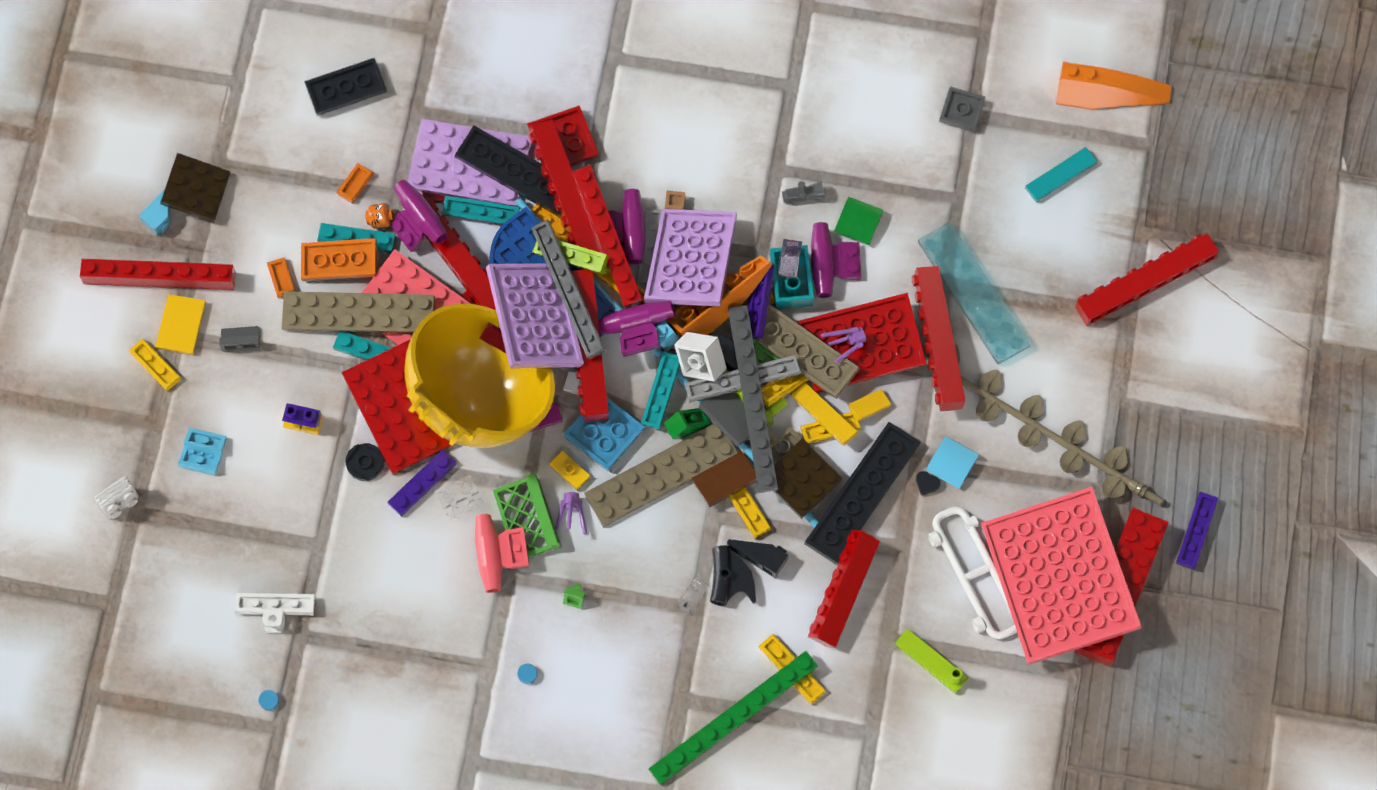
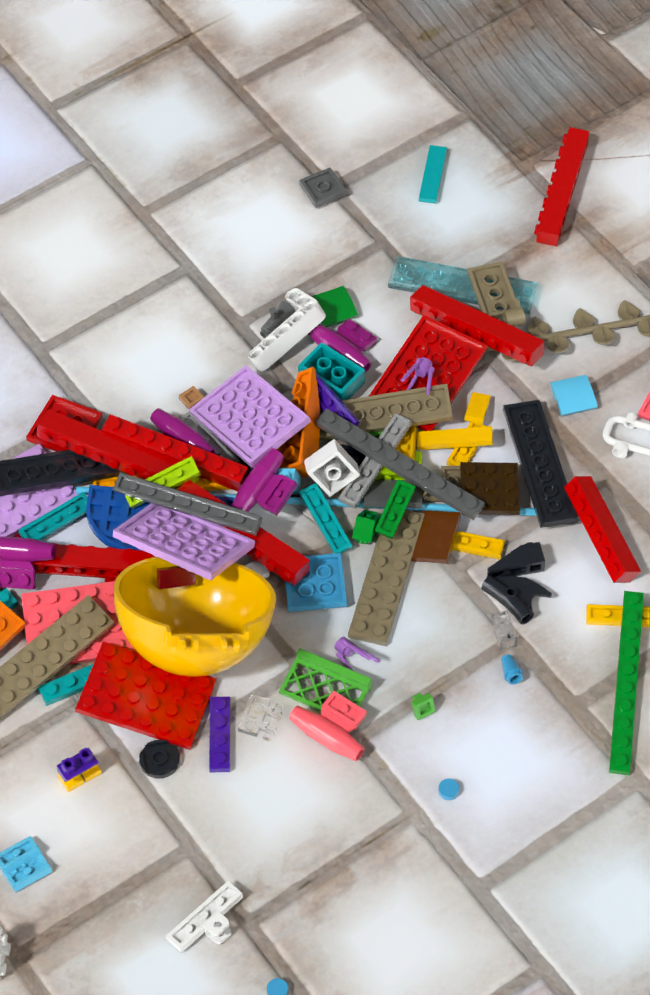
camera: 45 degrees left, 15 degrees down
(569, 470) = (319, 629): yellow plate -> none
(664, 630) = (511, 670): none -> dark azure cone
(712, 431) = (395, 509): none -> green plate
(790, 258) = (322, 356): clear purple slope -> none
(799, 214) = (306, 317): none -> white beam
(927, 483) = (572, 422): black tile -> none
(975, 354) = (513, 312): none -> dark tan hinge
(1102, 87) = (400, 102): orange wedge -> none

